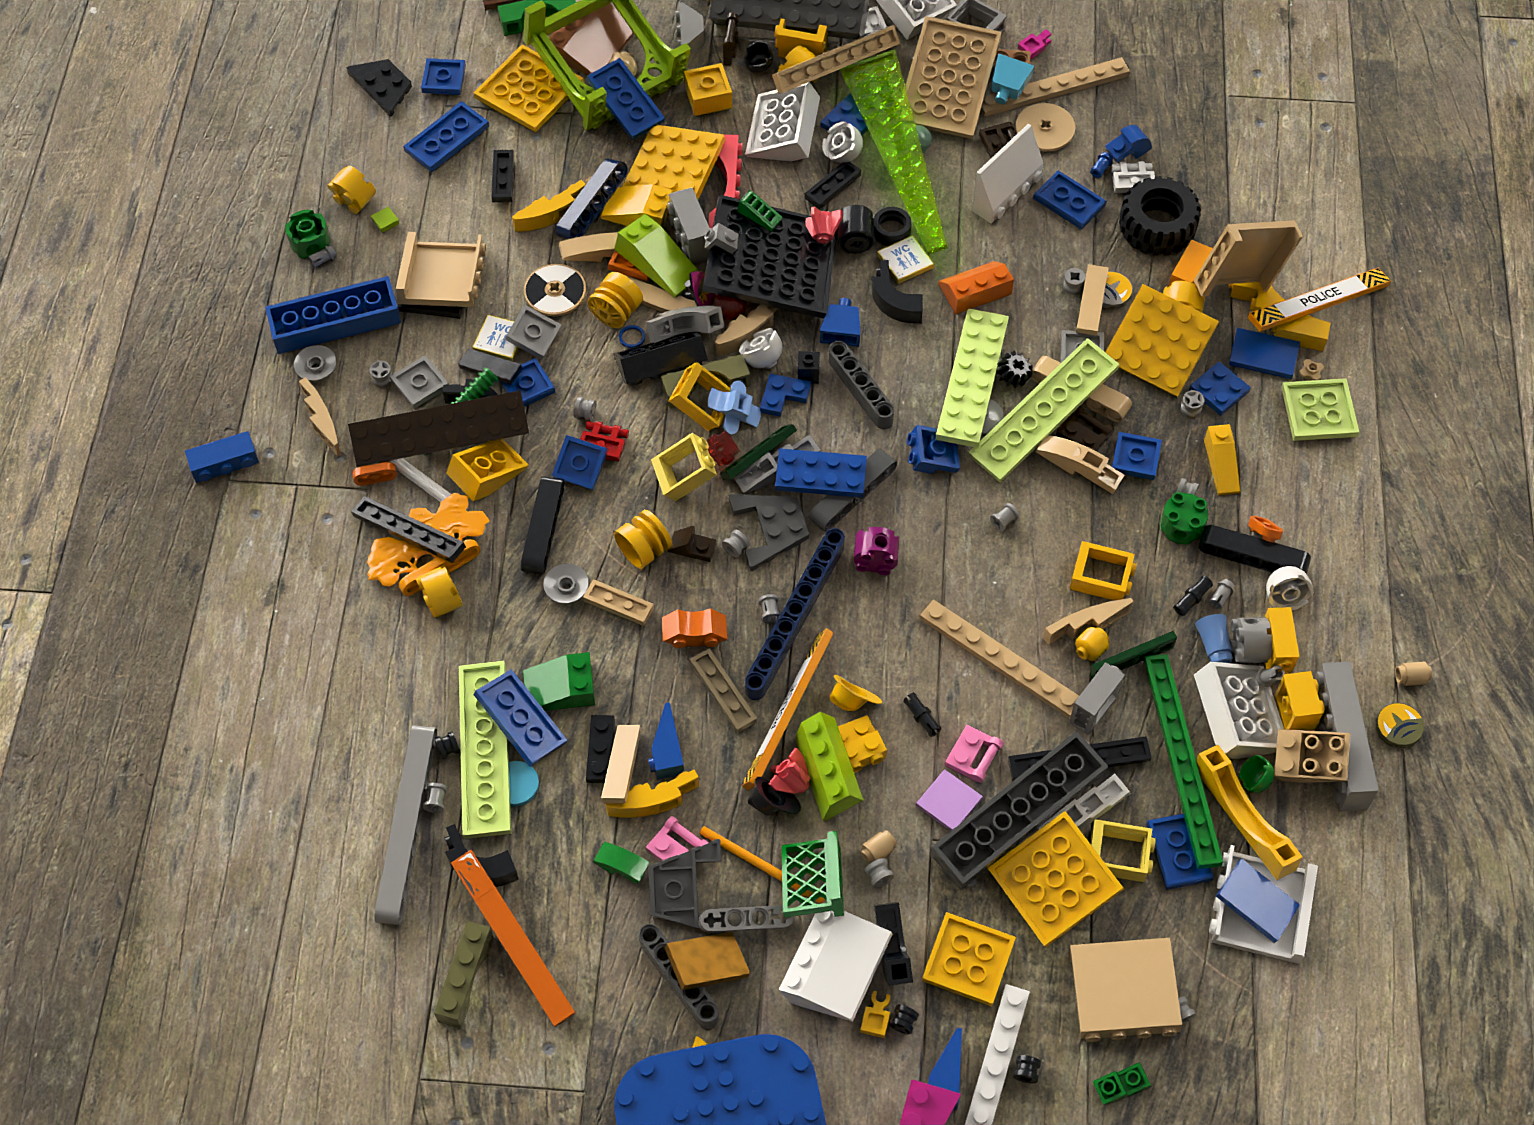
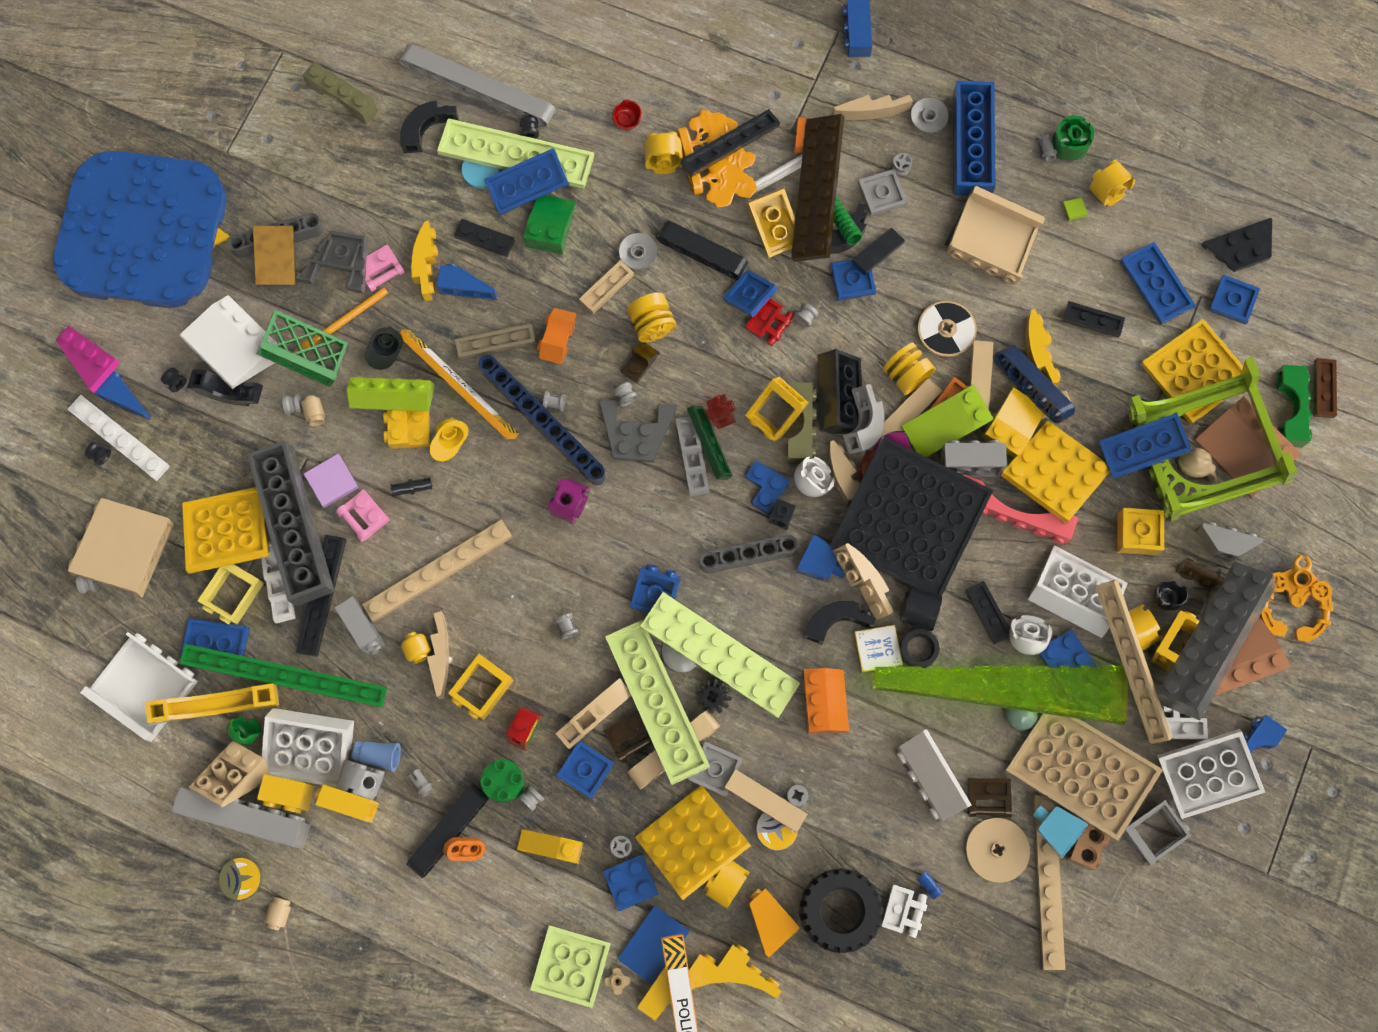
camera: 110 degrees right, 15 degrees up
(401, 646) = (627, 115): none -> red hair
(435, 797) = (489, 109): light grey bush -> none
(492, 338) = (909, 269): white tile -> none
(513, 938) = (352, 129): orange tile -> none
(533, 332) = (901, 294): light grey plate -> none
(619, 860) = (381, 222): green slope -> none
(621, 764) = (458, 244): tile -> none
(632, 327) = (877, 370): blue piece -> none
(663, 462) = (719, 361): light yellow window -> none
(722, 237) = (932, 470): light grey bracket -> none
(735, 406) = (759, 435): light blue piece -> none
(746, 919) = (294, 294): light grey beam -> none
(753, 206) = (978, 515): green slope -> none
(791, 776) = (398, 364): coral brick -> none
(821, 473) = (661, 481): blue plate -> none
(823, 224) = (928, 575): coral brick -> none
(834, 508) = (643, 509): dark grey beam -> none
(845, 278) = (862, 573): none -> tan slope
(876, 1018) = (184, 361): yellow plate -> none
(968, 959) = (198, 444): yellow plate -> none
(1034, 43) = (1109, 881): dark pink plate -> none
(1069, 199) = (899, 836): blue tile -> none
(1122, 1084) = (59, 518): green slope -> none
(1123, 516) = (523, 728): none -> red torso
(1131, 141) = (942, 921): blue brick -> none
(1137, 654) = (391, 678): dark green tile -> none
(1193, 595) = (428, 756): black pin -> none
(1249, 254) = (725, 982): tan panel -> none
(1258, 900) = (139, 678): tile -> none
(1267, 676) = (323, 778): light grey pin -> none
(1289, 588) = (400, 841): white cylinder -> none

